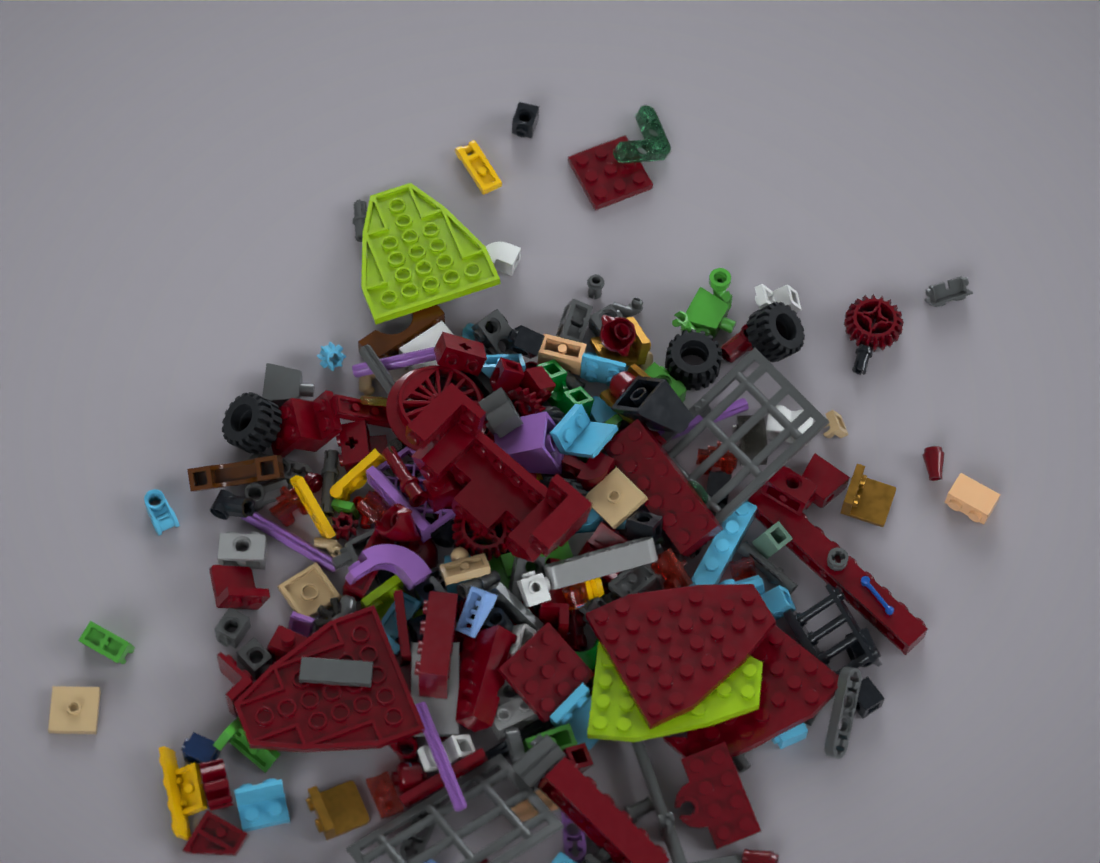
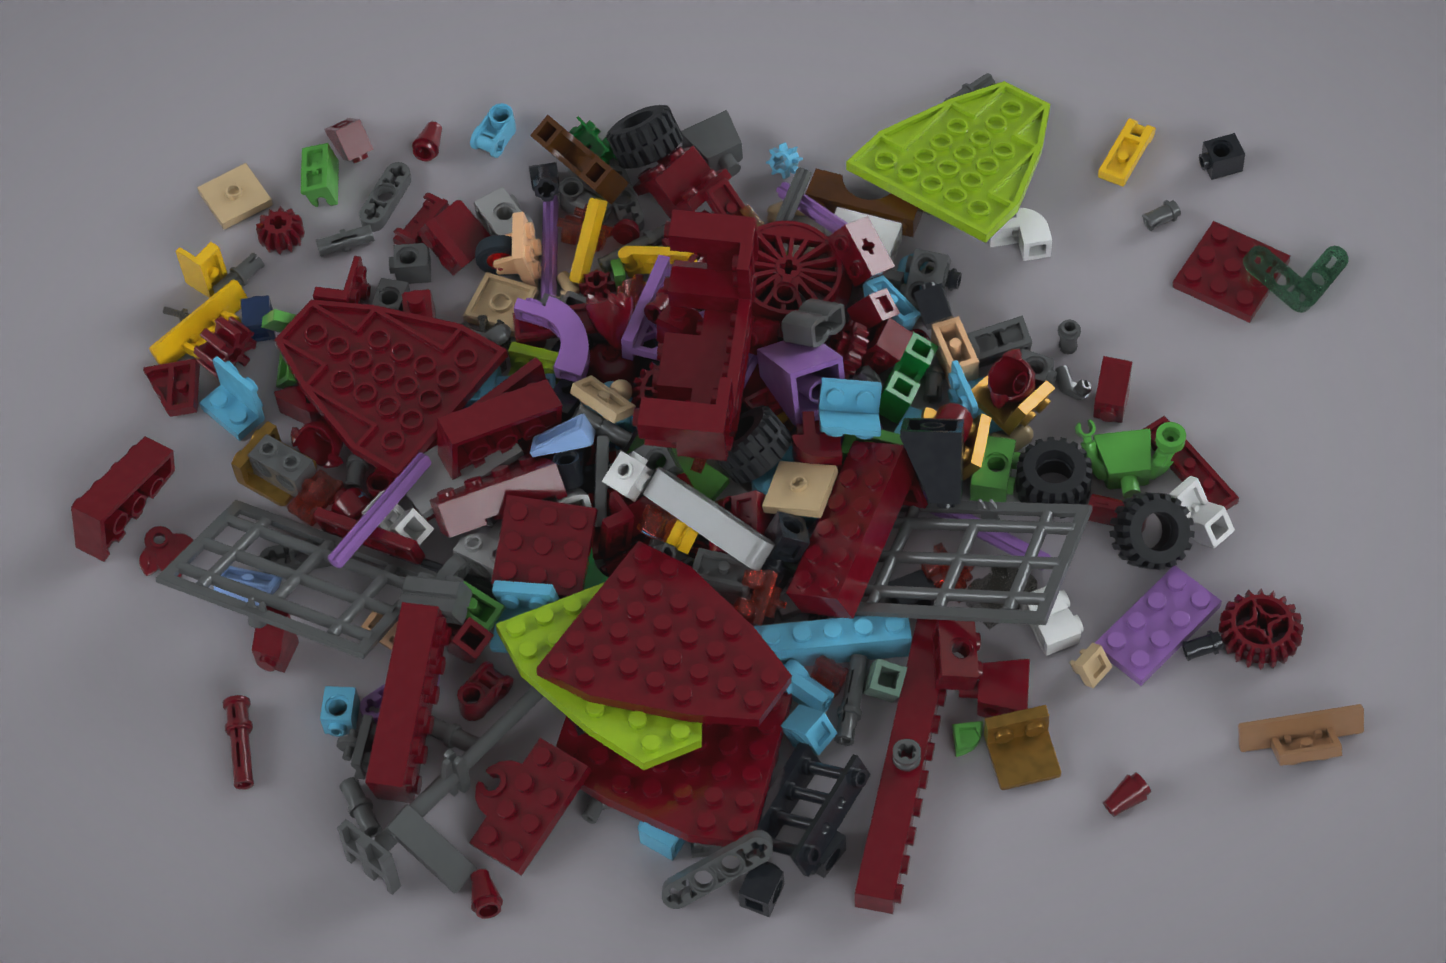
camera: 65 degrees right, 5 degrees down
(88, 606) = (350, 139): none -> slope
(133, 559) = (428, 141): none -> dark red cone
(134, 688) = (280, 230): none -> dark red gear
(135, 768) = (204, 269): none -> yellow panel
(151, 745) = (241, 272): none -> dark grey axle
(154, 800) = (176, 313): none -> clear smoke hand
(156, 603) = (385, 185): none -> dark grey beam
(175, 659) = (345, 240): none -> dark grey pin
(201, 602) = (431, 208): none -> dark red hinge
(210, 457) = (588, 134): none -> green hinge
(281, 558) = (512, 252): none -> light nougat plate
(297, 765) = (294, 404): none -> dark red slope
(301, 624) = (456, 311): medium lavender tile -> none
(336, 672) = (403, 360): dark grey tile -> none
(341, 767) = (319, 443): none -> dark red hat
(349, 800) = (281, 465): none -> dark grey brick
(378, 759) = (356, 471): none -> dark grey pin
(542, 174) = (1161, 215): none -> dark grey pin
(610, 773) = (486, 687): none -> dark red piece
(656, 288) = (1112, 389): none -> dark red slope
(699, 490) = (881, 568): clear green piece -> none
(739, 287) = (1191, 463): none -> dark red tile
(830, 373) = (1158, 625): none -> medium lavender plate
(833, 523) = (966, 736): none -> bright green tile
(865, 581) = (902, 801): blue hinge -> none
(956, 291) = (1380, 690): dark grey hinge -> none
(960, 349) = (1302, 735): none -> medium nougat bracket
(972, 498) = (1109, 860): light nougat brick -> none

